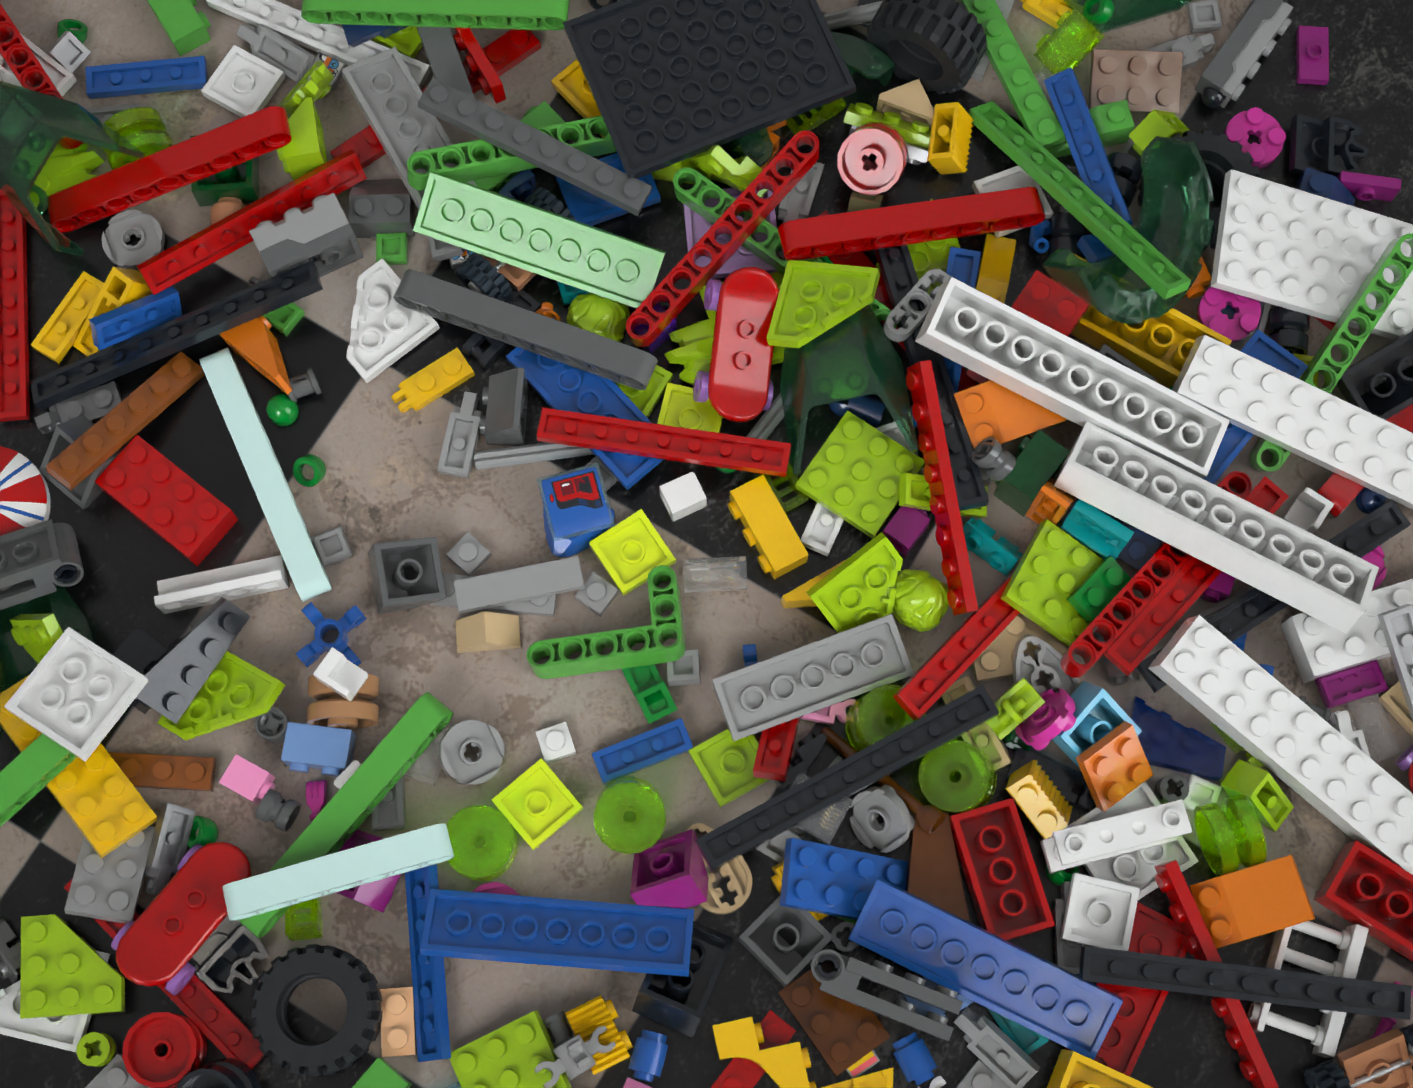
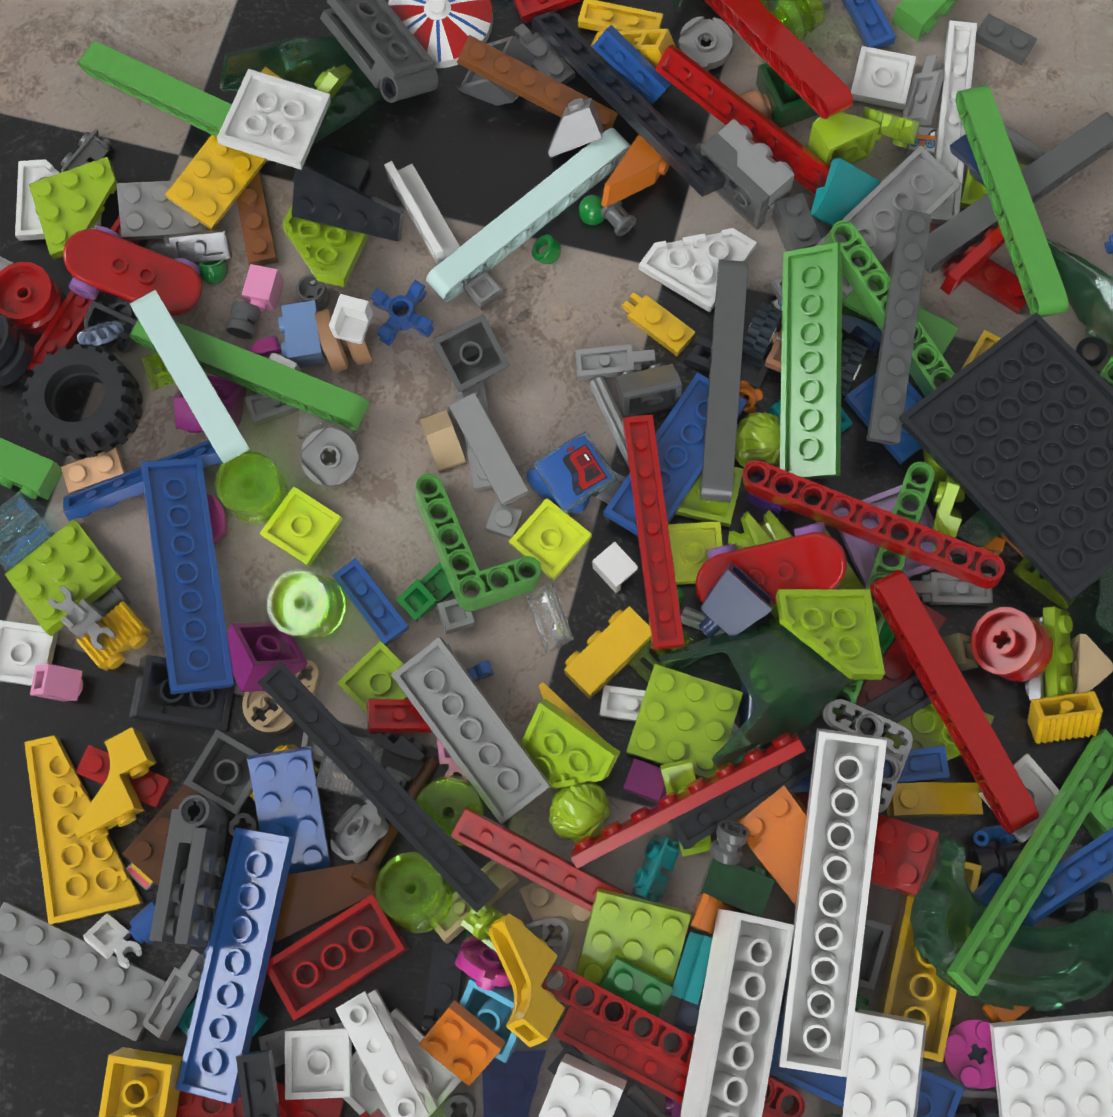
camera: 85 degrees right, 0 degrees up
(102, 1052) = (15, 242): lime wheel -> none
(166, 500) = (481, 146): red brick -> none
(188, 396) = (576, 127): none -> slope
(246, 968) = (100, 333): none -> sand blue gear
(285, 318) = (676, 185): bright green tile -> none
(367, 156) = (842, 192): none -> teal slope
(392, 248) = (770, 249): bright green tile -> none
(469, 554) = (508, 402): light grey plate -> none
(555, 742) = (361, 526): white plate -> none
(648, 1055) = (106, 684): blue brick -> none
(764, 386) = (734, 603): none -> torso
(1039, 799) = (414, 977): yellow brick -> none
(1066, 676) = (526, 965): none -> yellow arch

